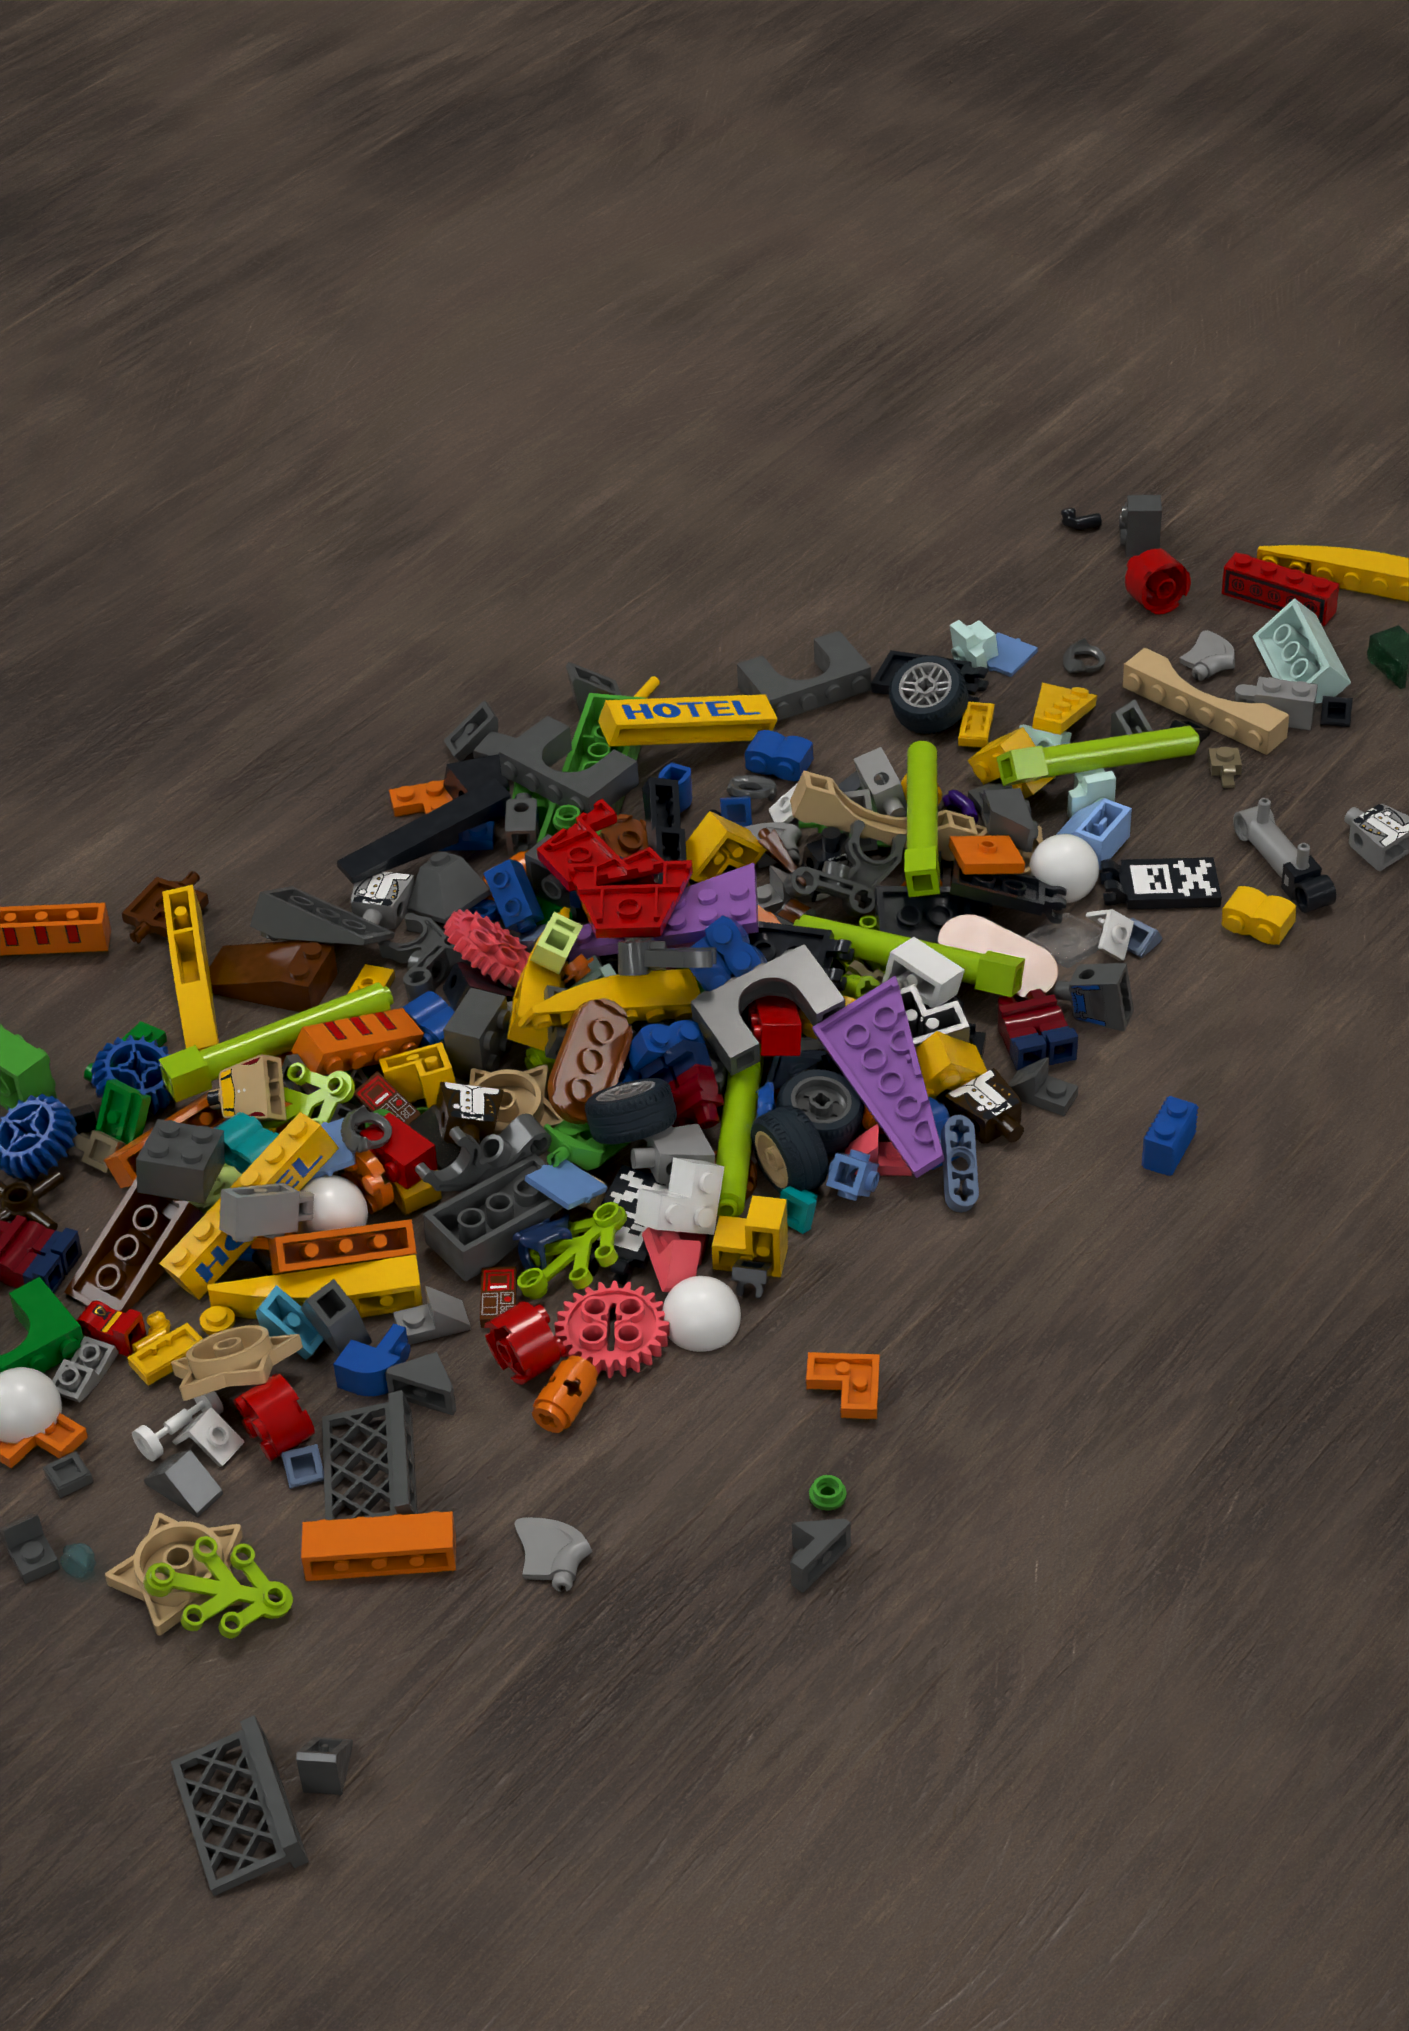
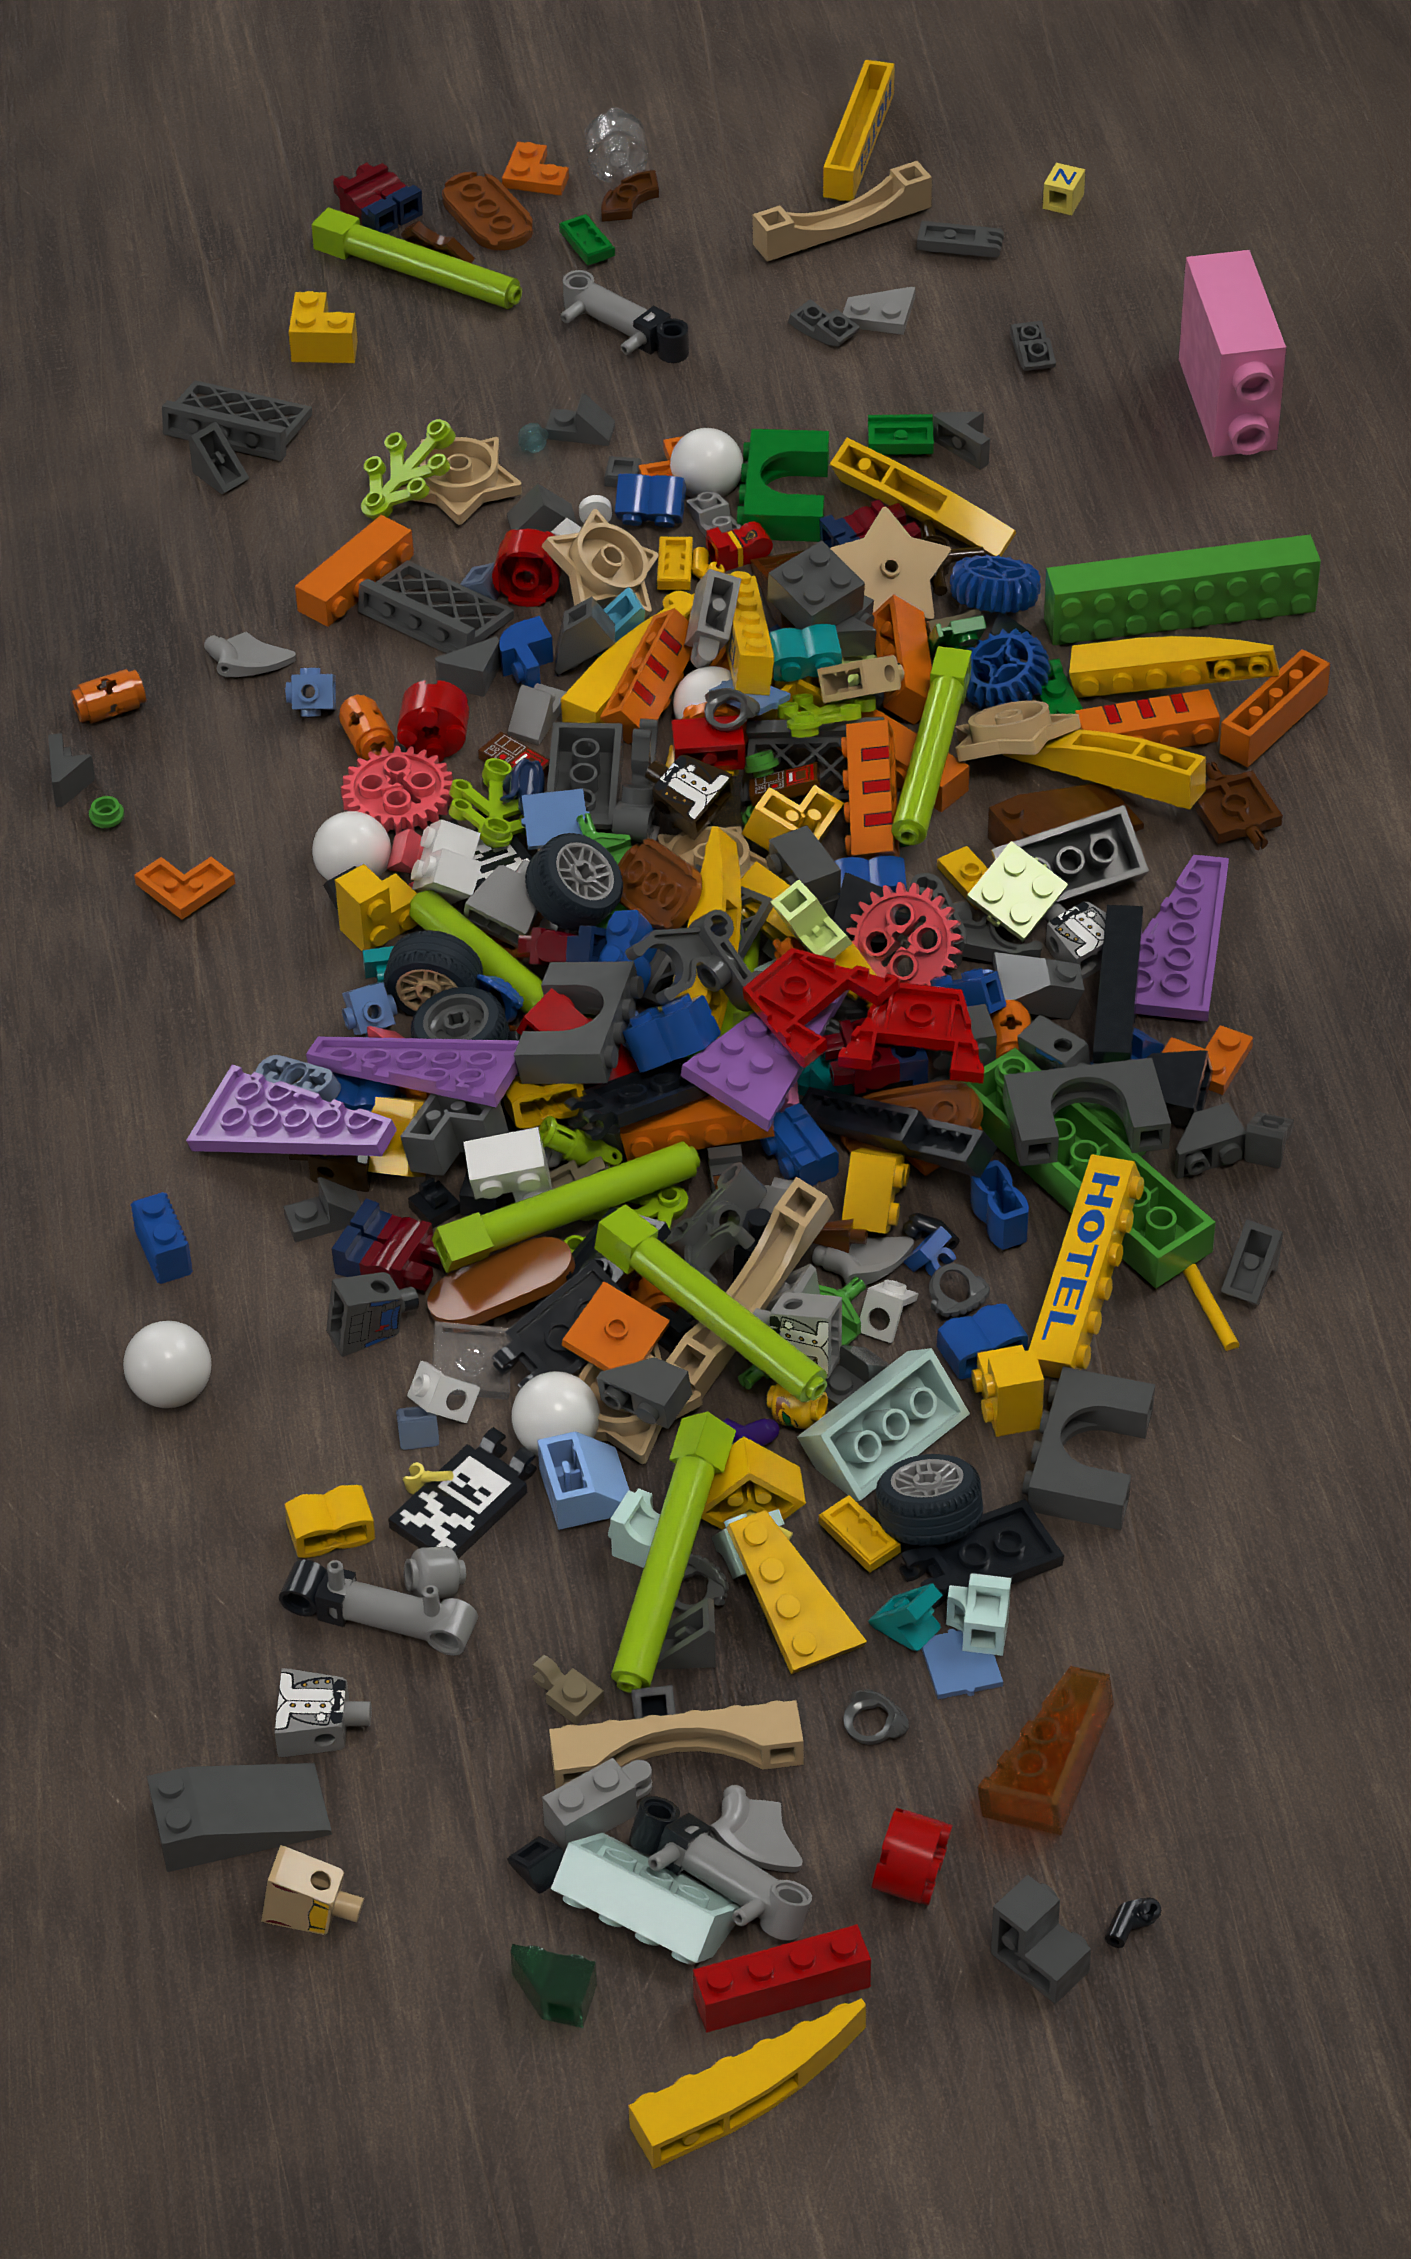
camera: 130 degrees right, 5 degrees up
(57, 997) = (1166, 663): none -> yellow slope
(60, 1833) = (320, 334): none -> yellow brick
(72, 1198) = (892, 548): none -> tan plate
(104, 1408) = (650, 499): none -> blue brick
(119, 986) = (1167, 720): none -> orange brick
(207, 1014) = (1012, 729): none -> tan plate
(316, 864) = (1183, 944): none -> medium lavender wing
(383, 922) = (1016, 891): none -> yellowish green plate
(562, 1451) = (324, 692): none -> medium blue brick
(721, 1595) = (95, 703): none -> orange piece
(809, 709) = (1010, 1389): none -> yellow brick
(847, 747) = (884, 1423): none -> light aqua slope
(1009, 668) = (909, 1617): none -> teal slope
(1014, 1147) = (284, 1119): none -> medium lavender wing
(1027, 576) = (1049, 1761): none -> clear orange wedge
(1177, 902) = (420, 1477): none -> light yellow hand
(1232, 850) = (434, 1567): none -> light grey head
(1255, 651) = (686, 1846): none -> light grey piece
(1262, 1044) = (167, 1364): none -> white piece

